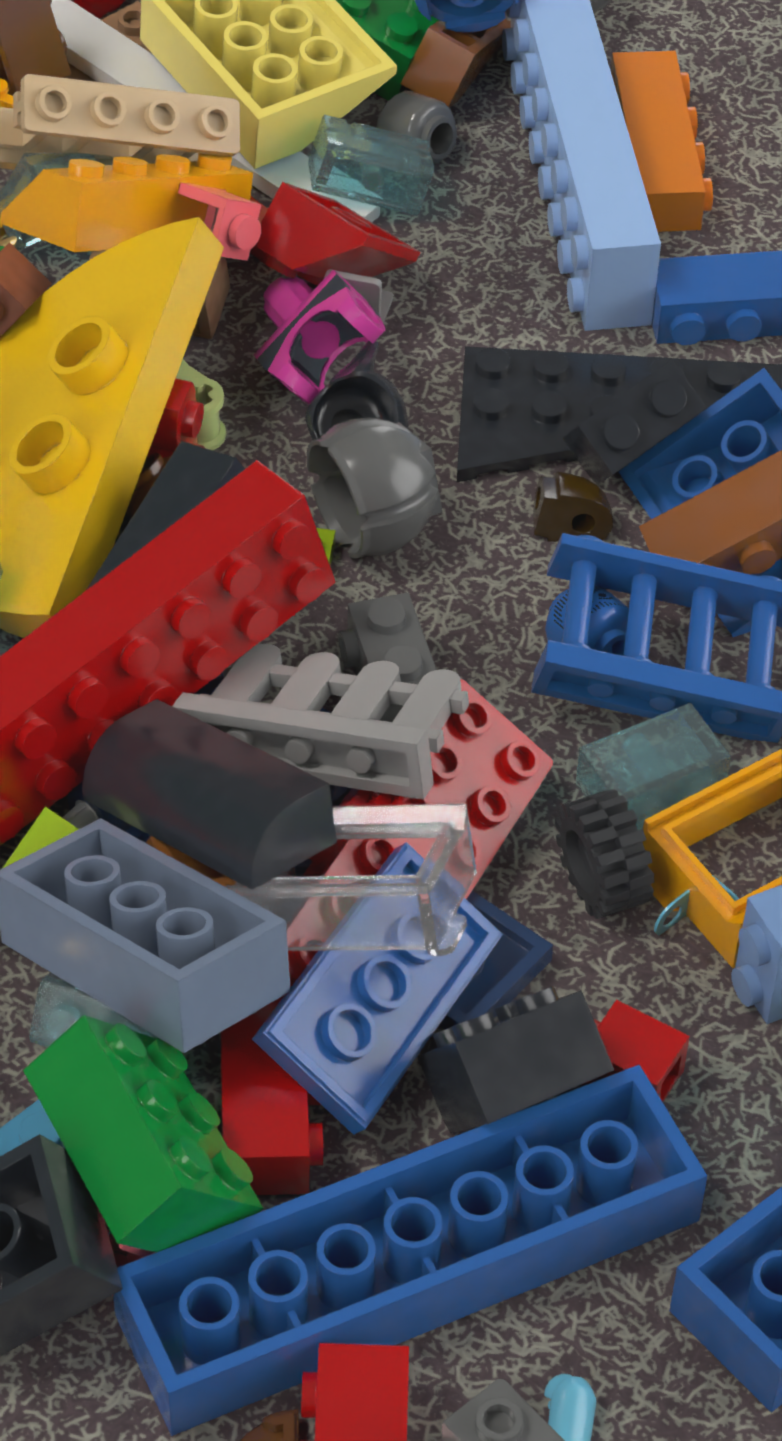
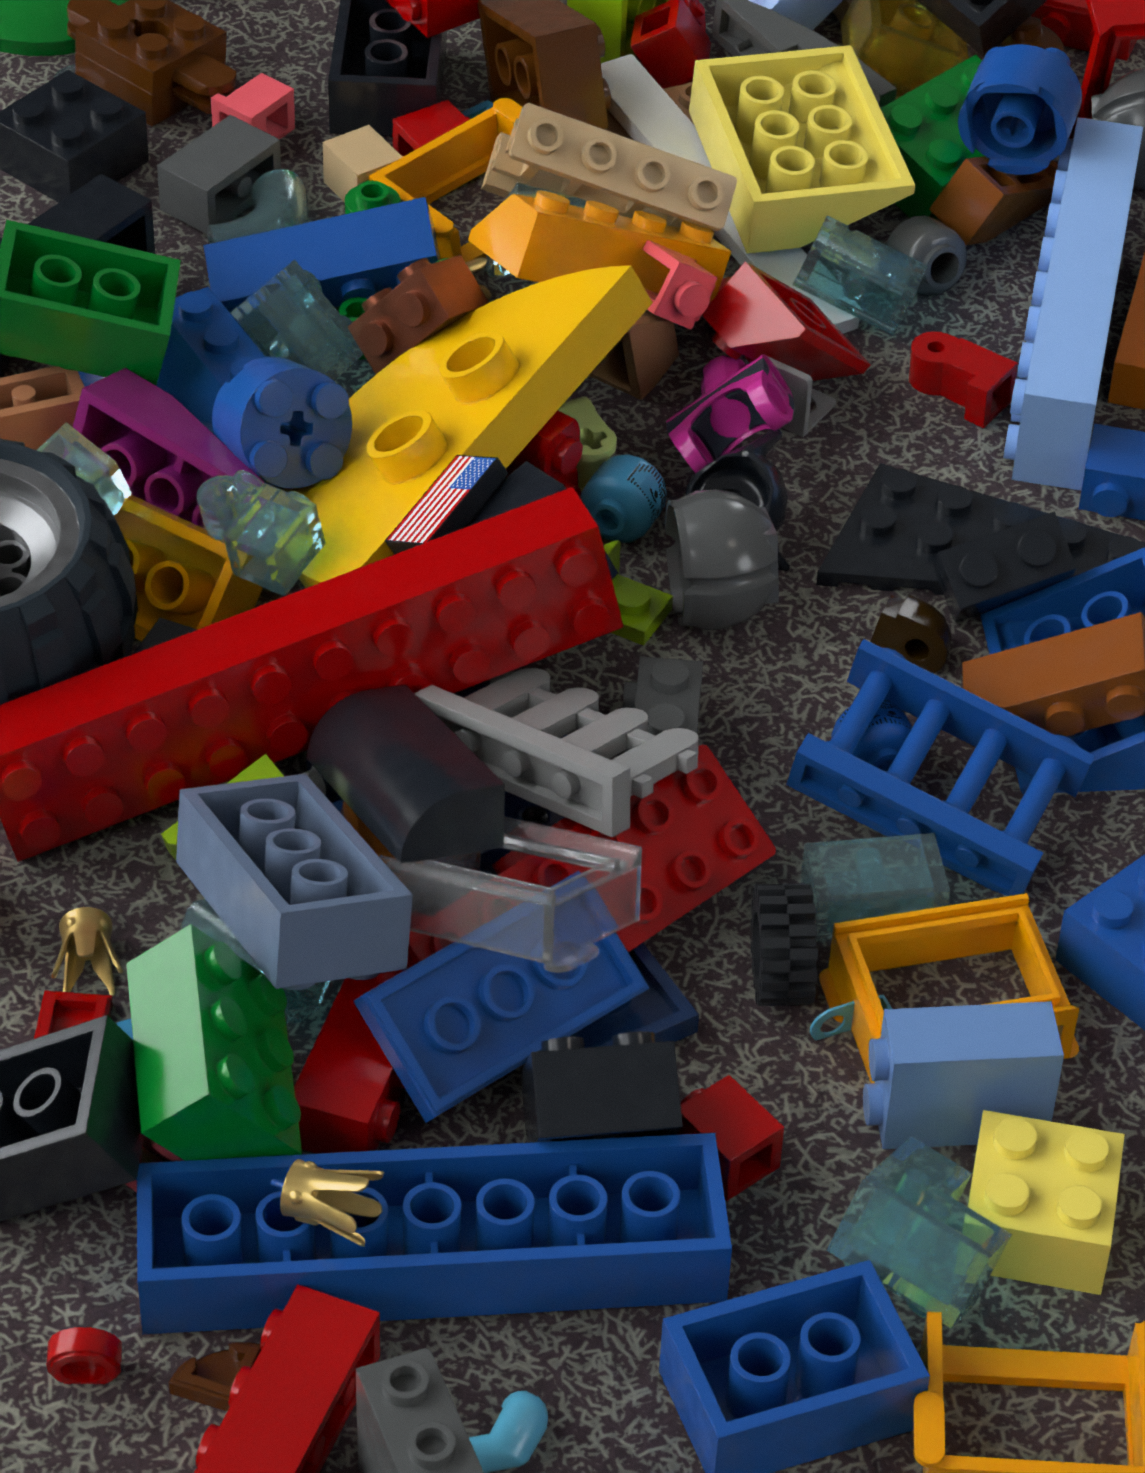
camera: 20 degrees right, 5 degrees down
(120, 506) = (449, 501): none -> tile
(251, 434) = (625, 494): none -> dark azure head
(307, 1249) = (326, 1196): none -> pearl gold piece
(500, 239) = (962, 374): none -> red leg

